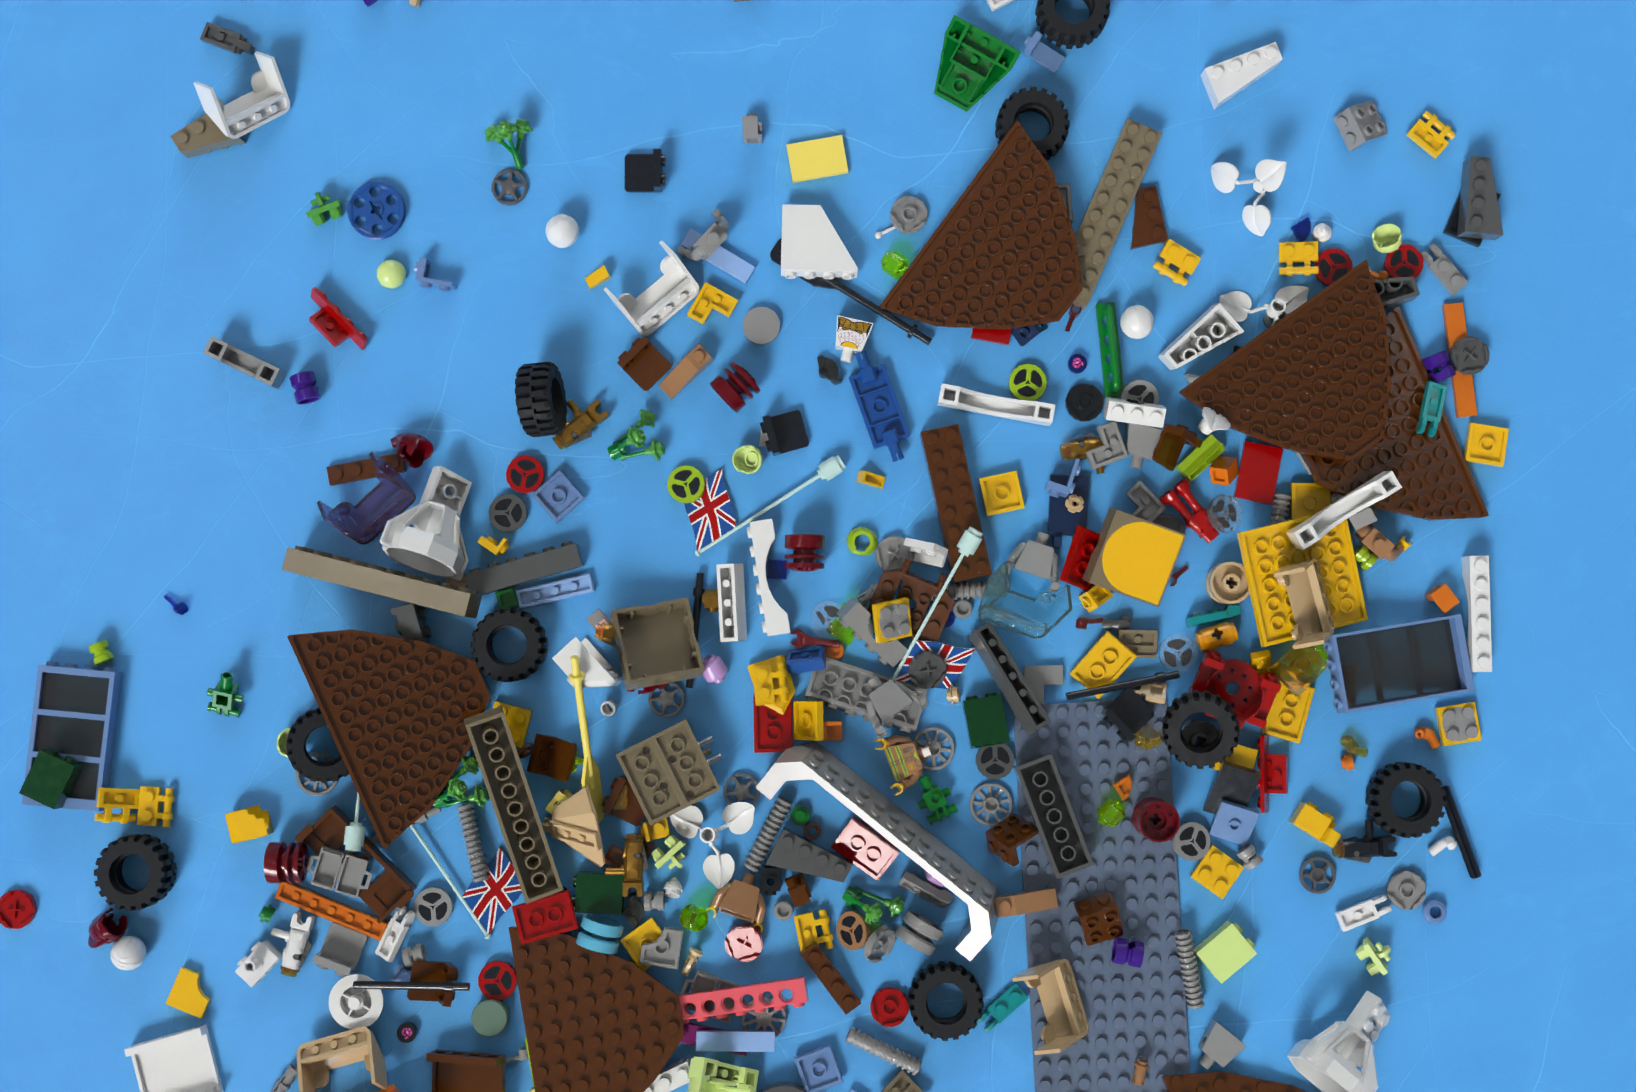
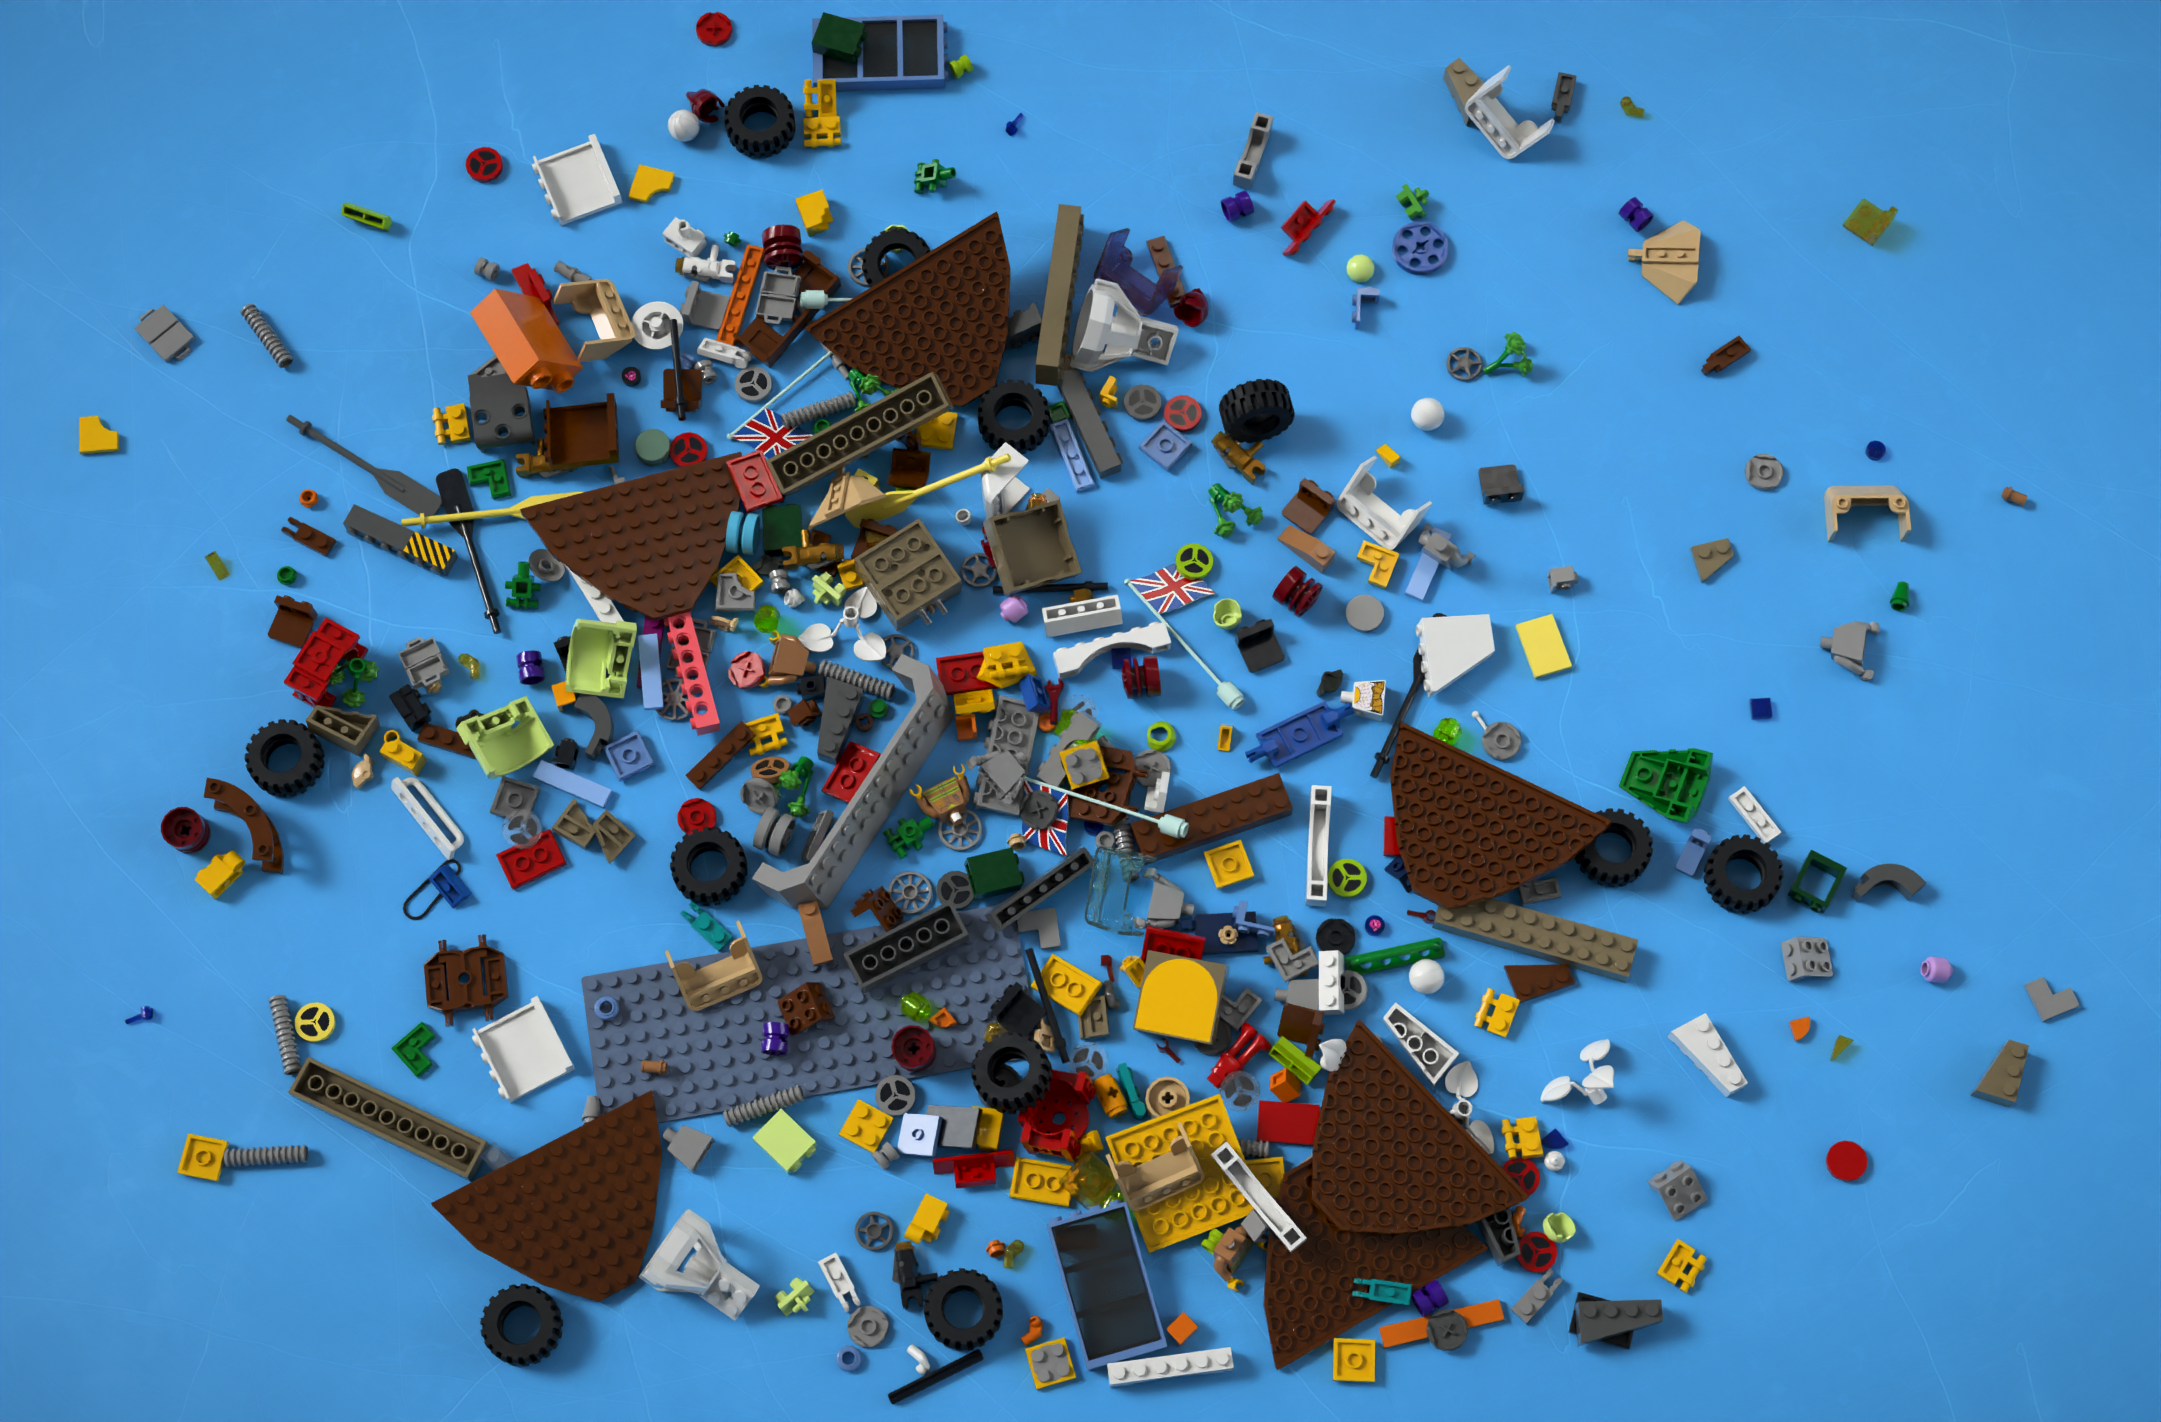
camera: 80 degrees right, 15 degrees down
(492, 840) = (821, 425): none -> green plate
(884, 1051) = (653, 814): light grey piece -> none

